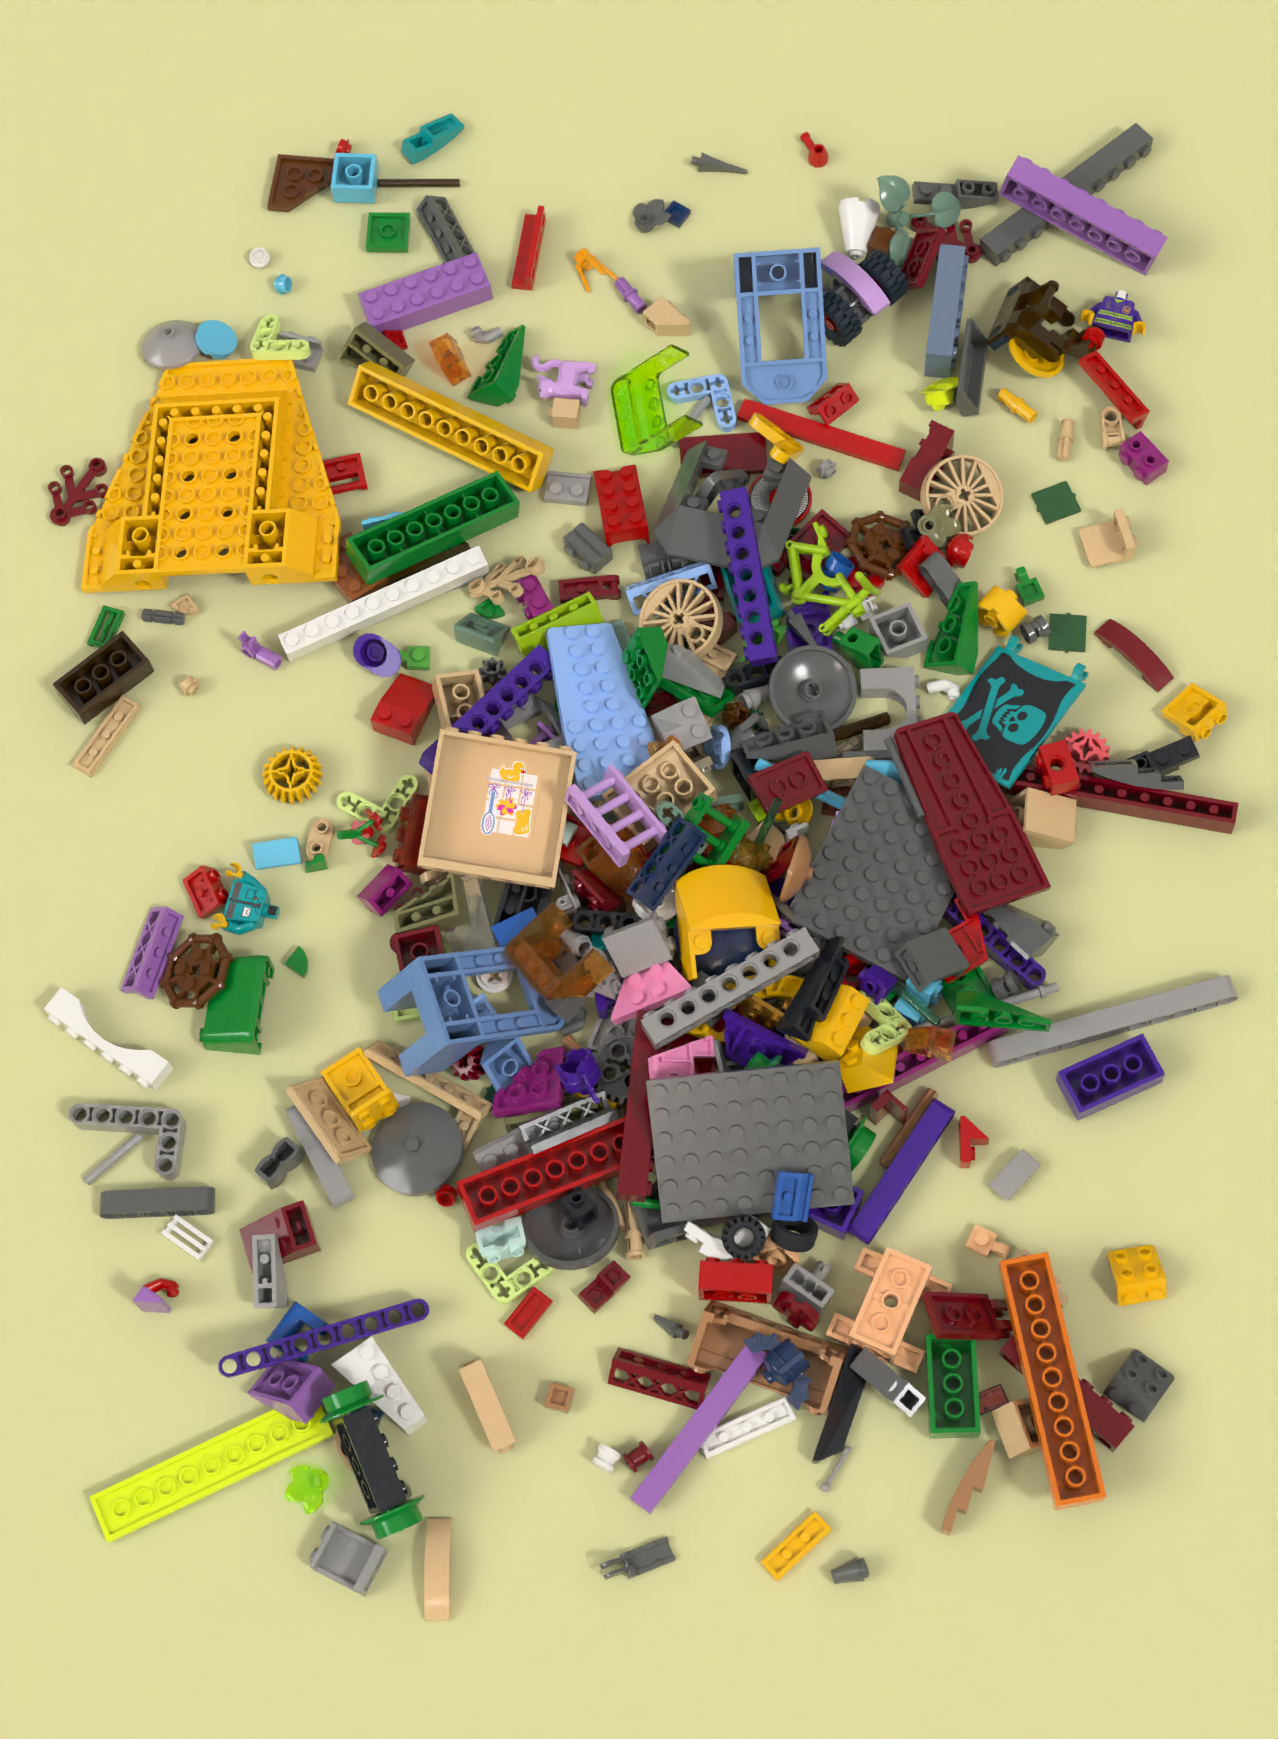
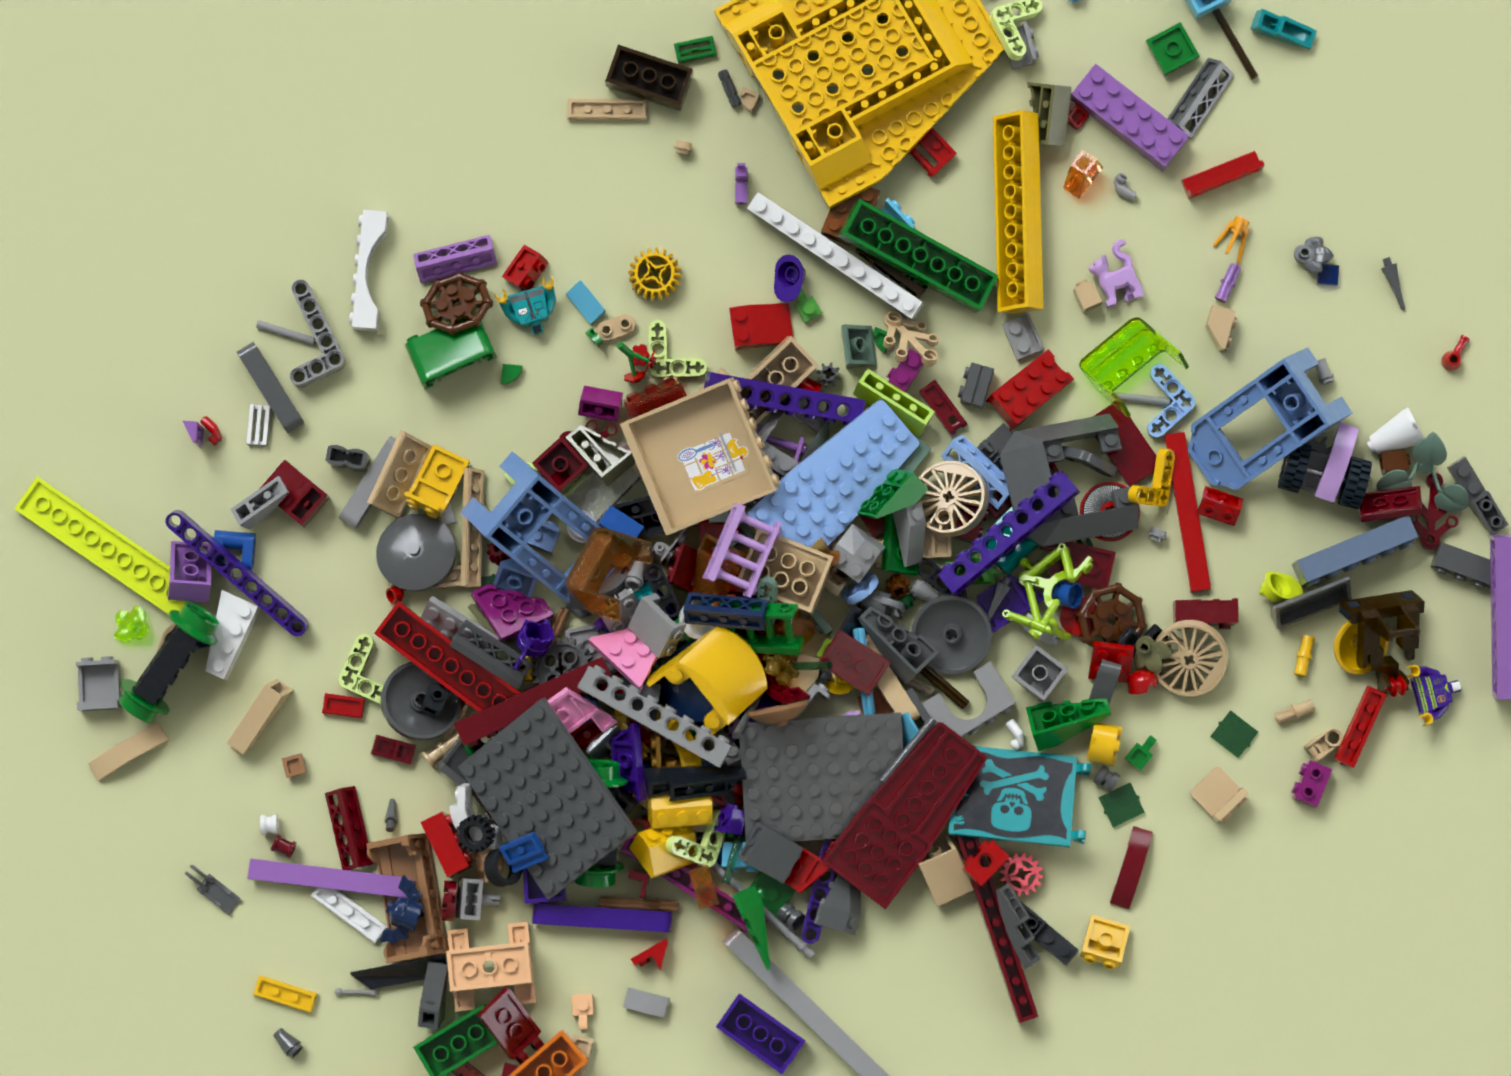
camera: 55 degrees right, 15 degrees up
(502, 373) = (1089, 224): green wedge -> none
(502, 1240) = (381, 656): light aqua cylinder -> none
(859, 648) = (1007, 656): green torso -> none

